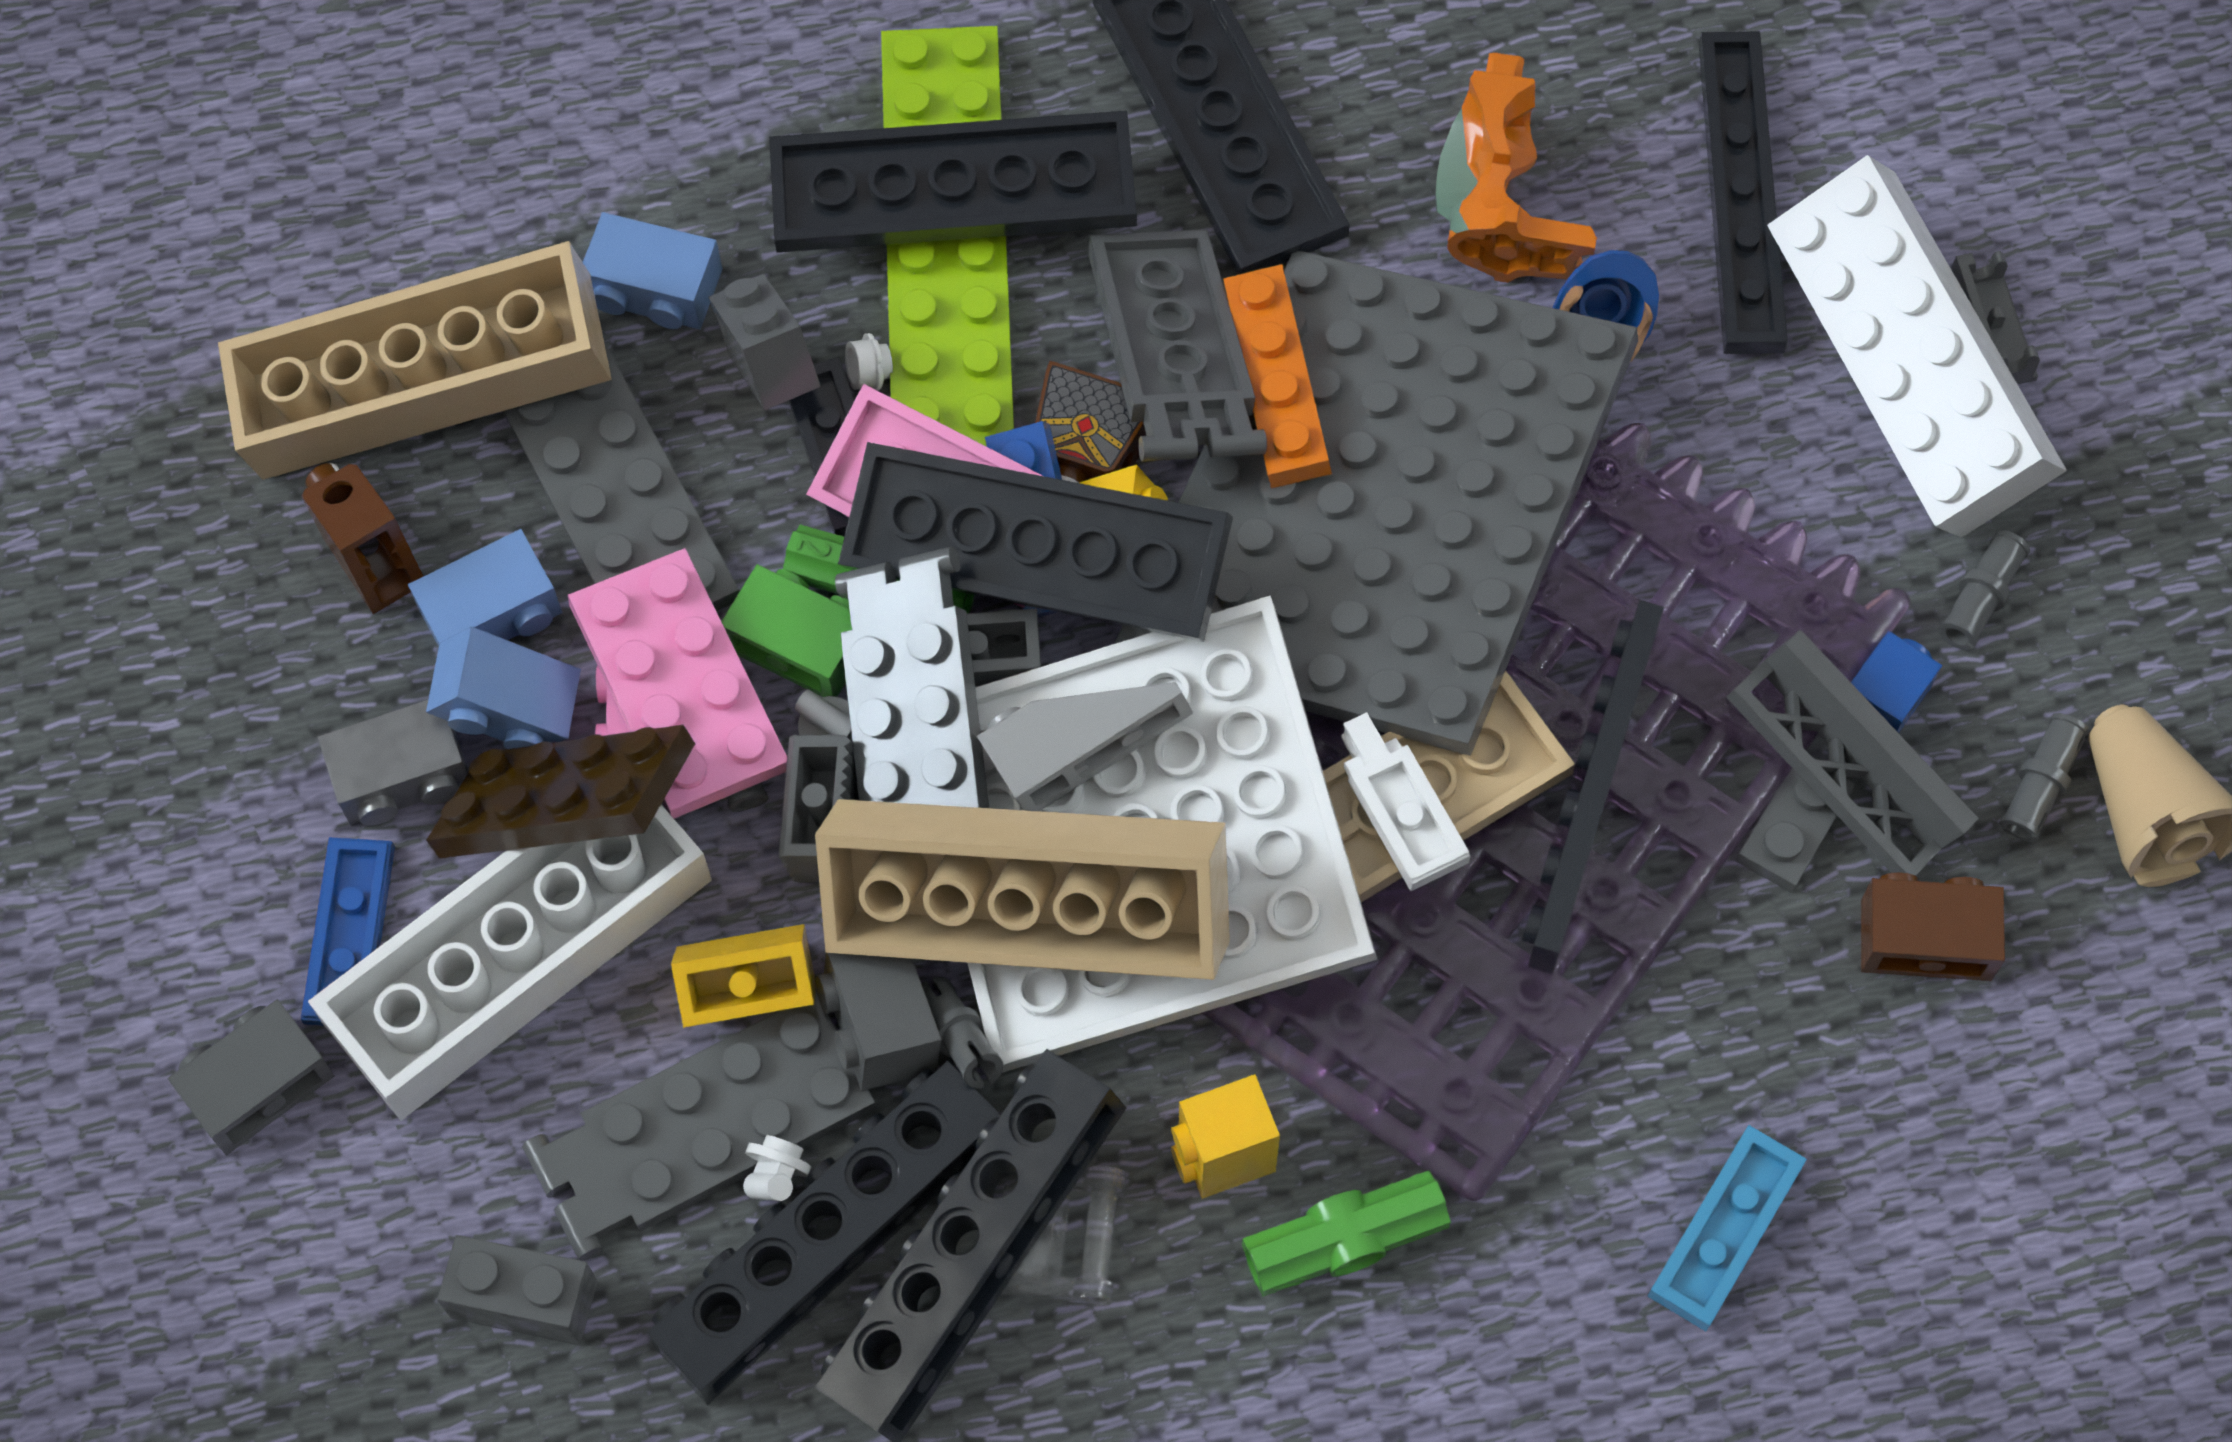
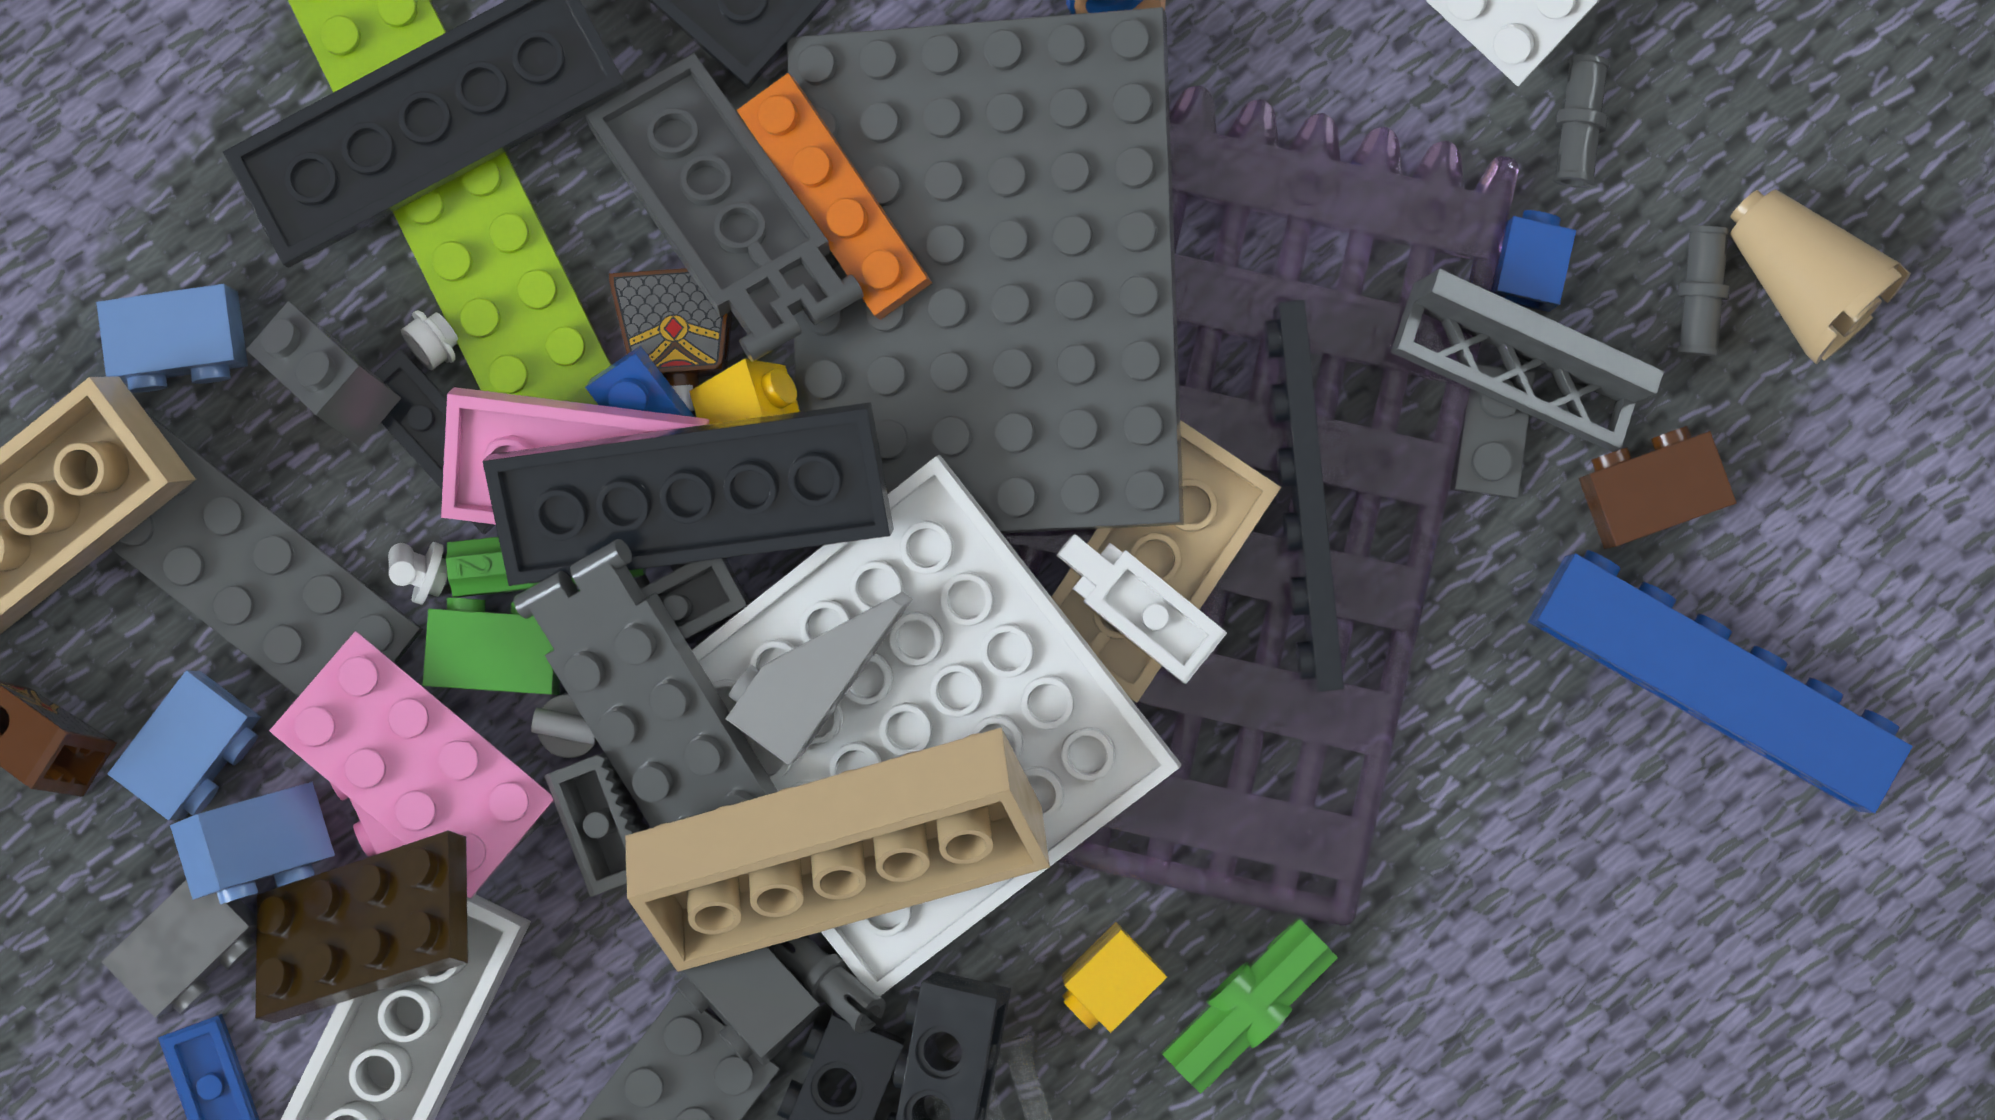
camera: 30 degrees left, 20 degrees up
(743, 975) = (609, 1012): yellow brick -> none
(771, 548) = (424, 572): none -> white plate
(1727, 1228) = (1579, 851): dark azure plate -> none
(1929, 1128) = (1720, 682): none -> blue brick

